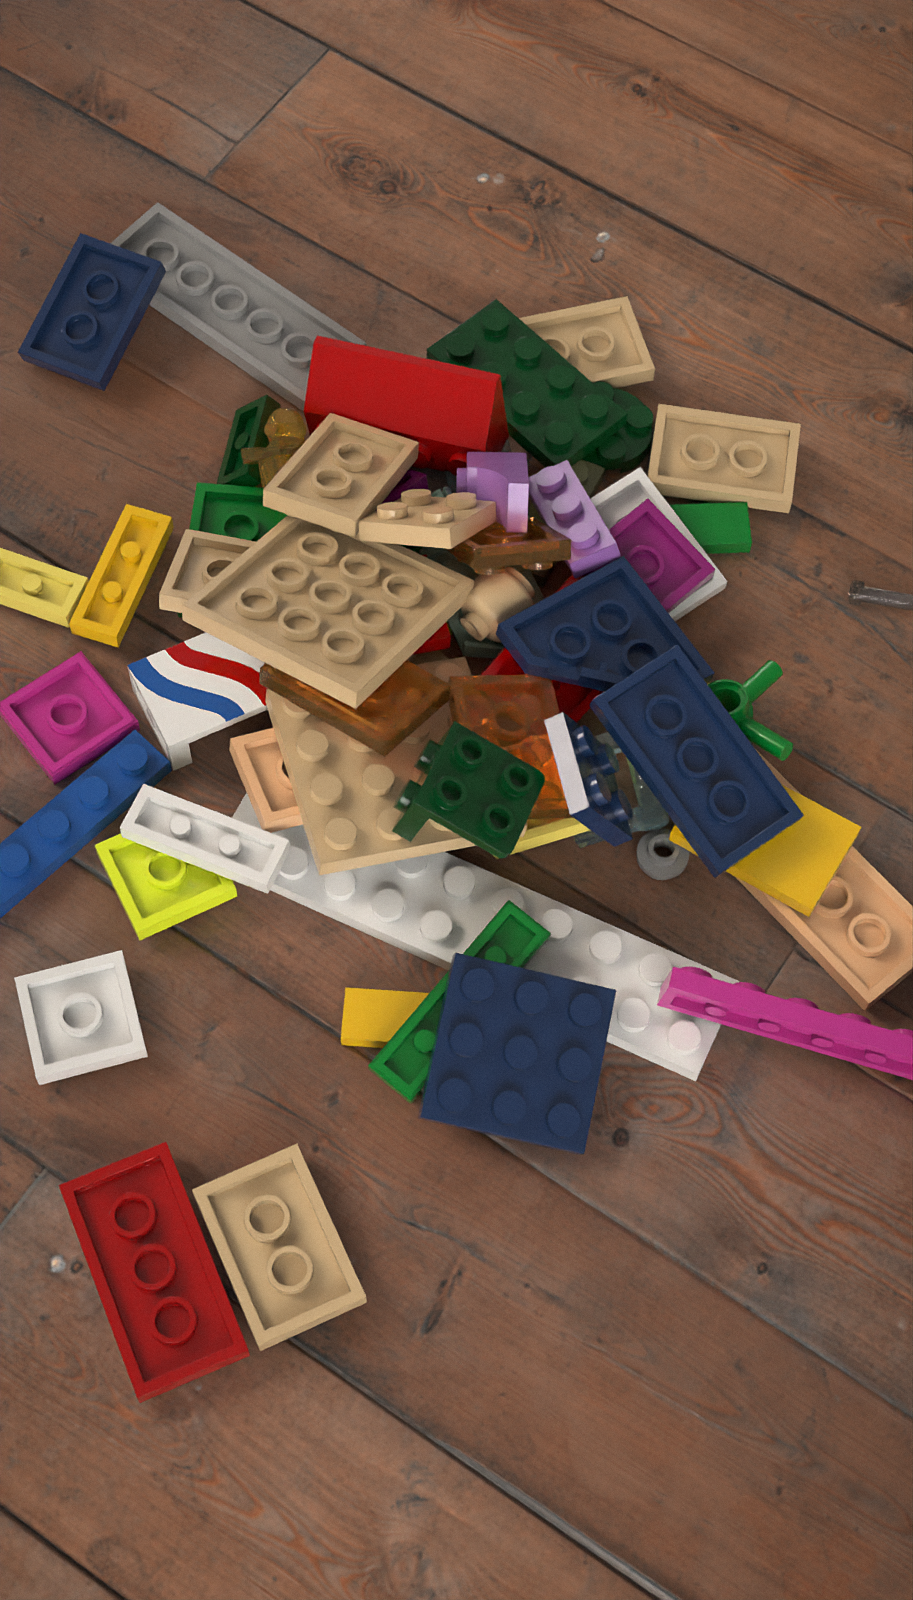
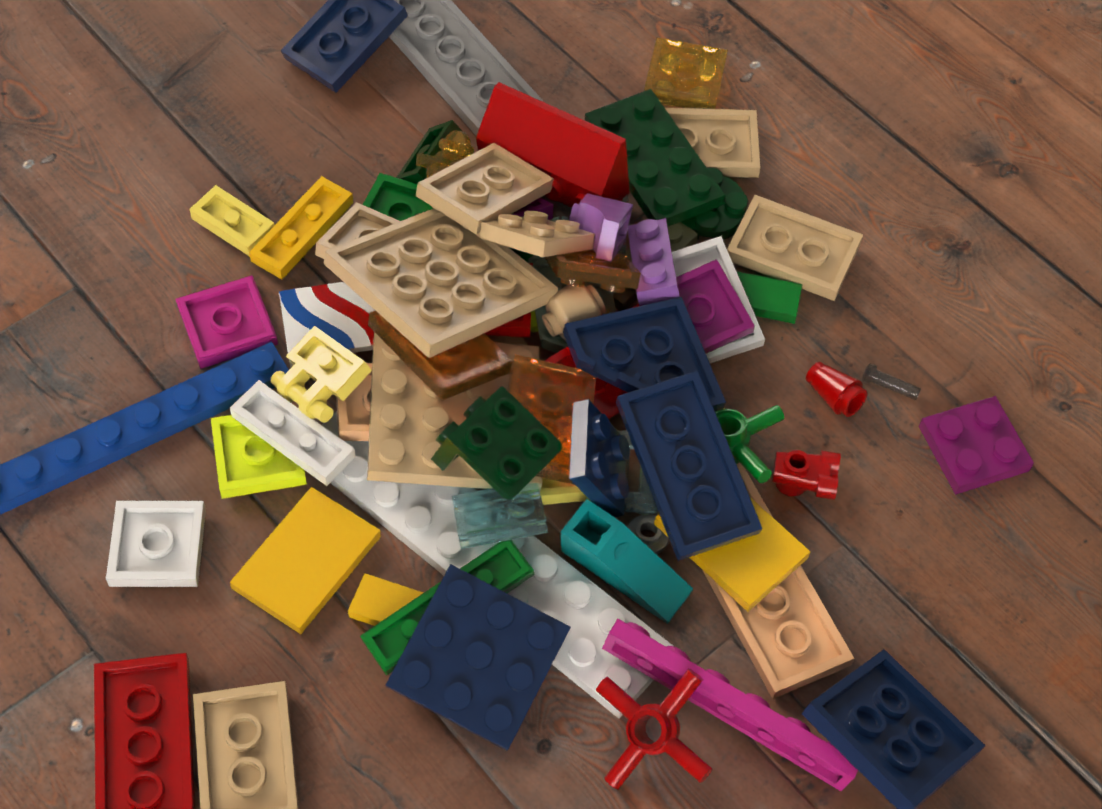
camera: 15 degrees right, 5 degrees down
(224, 743) = (326, 362): none -> light yellow plate
(267, 989) = (305, 560): none -> yellow tile
(479, 884) = (489, 518): none -> clear light blue plate
(527, 268) = (686, 74): none -> clear yellow plate
(648, 894) = (623, 561): none -> teal slope
(739, 1106) = (670, 729): none -> red bar
(826, 731) = (799, 471): none -> red plate
(827, 621) = (840, 391): none -> red cone

